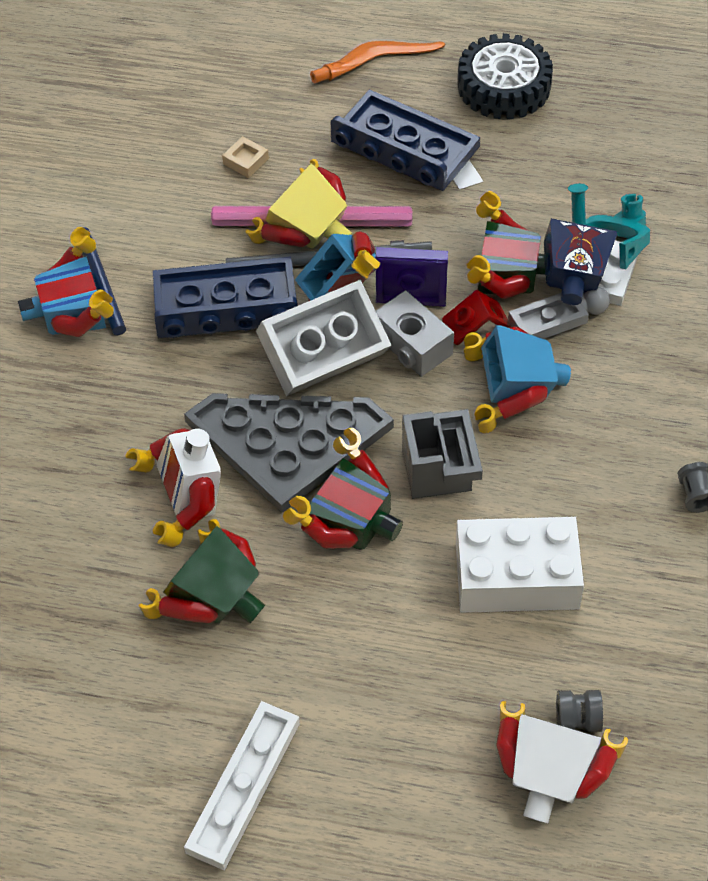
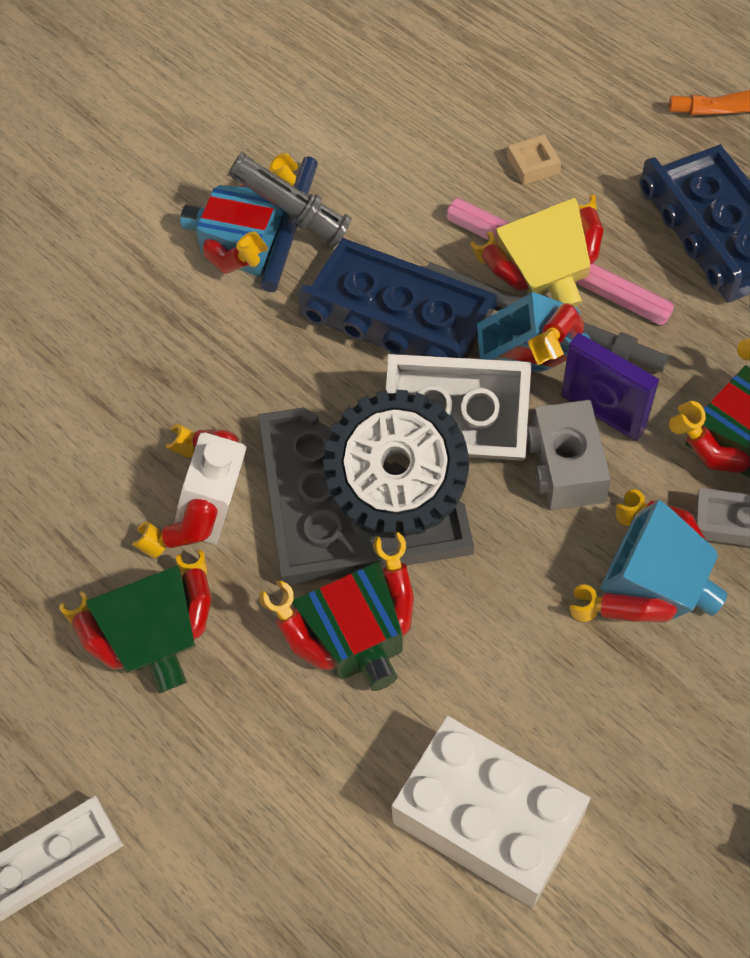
camera: 35 degrees right, 5 degrees up
(114, 262) = (307, 210): none -> dark grey pin
(317, 361) = (391, 426): none -> wheel
(440, 453) = (493, 616): dark grey plate -> none
(473, 314) = (658, 468): red bracket -> none

